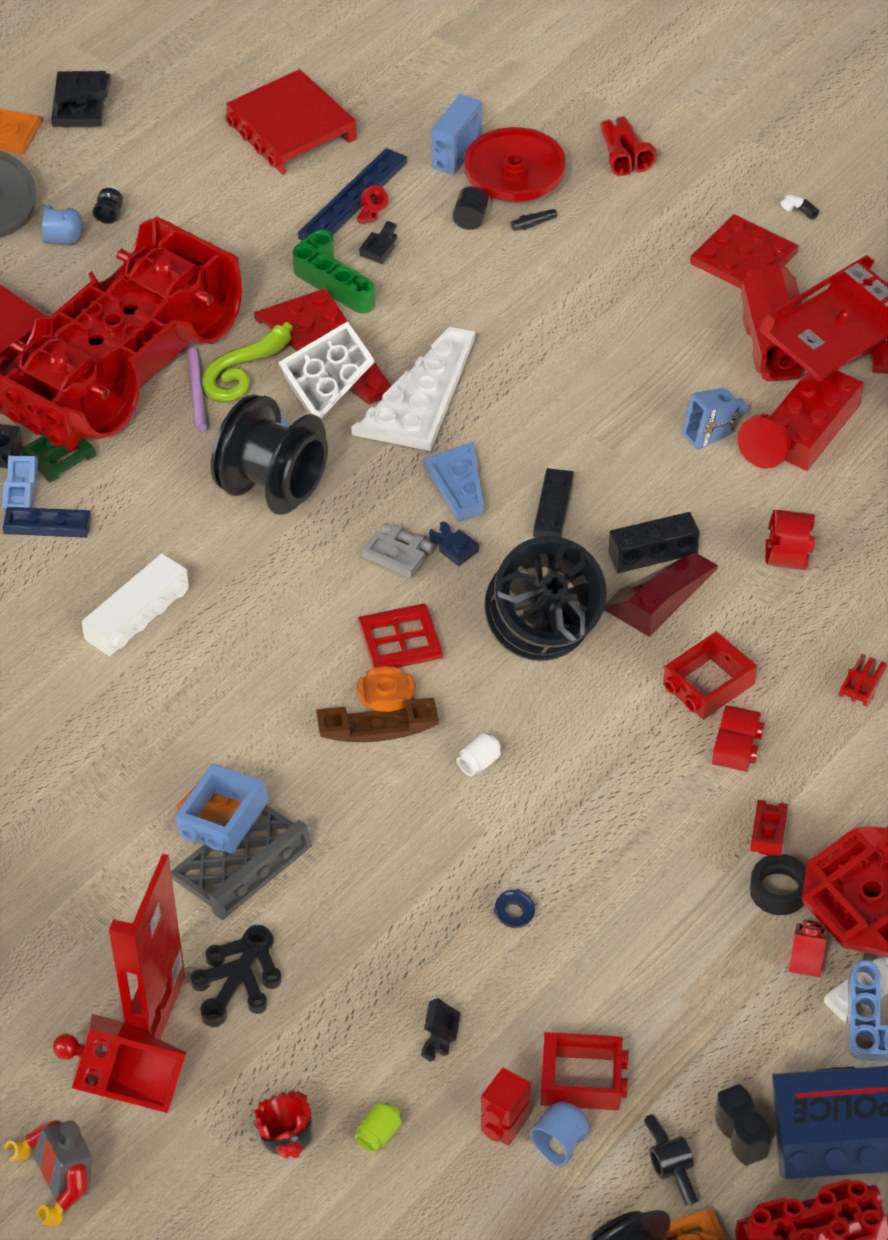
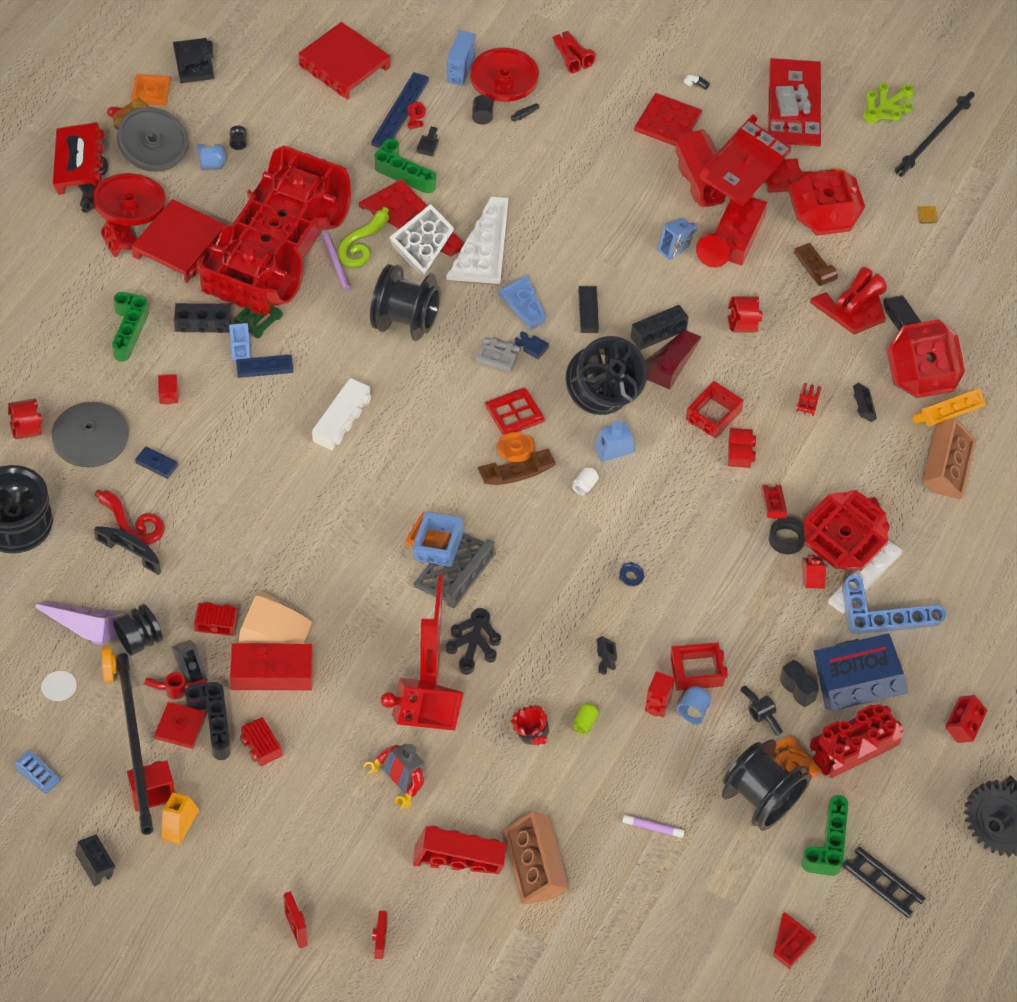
camera: 15 degrees left, 5 degrees up
(539, 701) = (614, 441): none -> medium blue torso

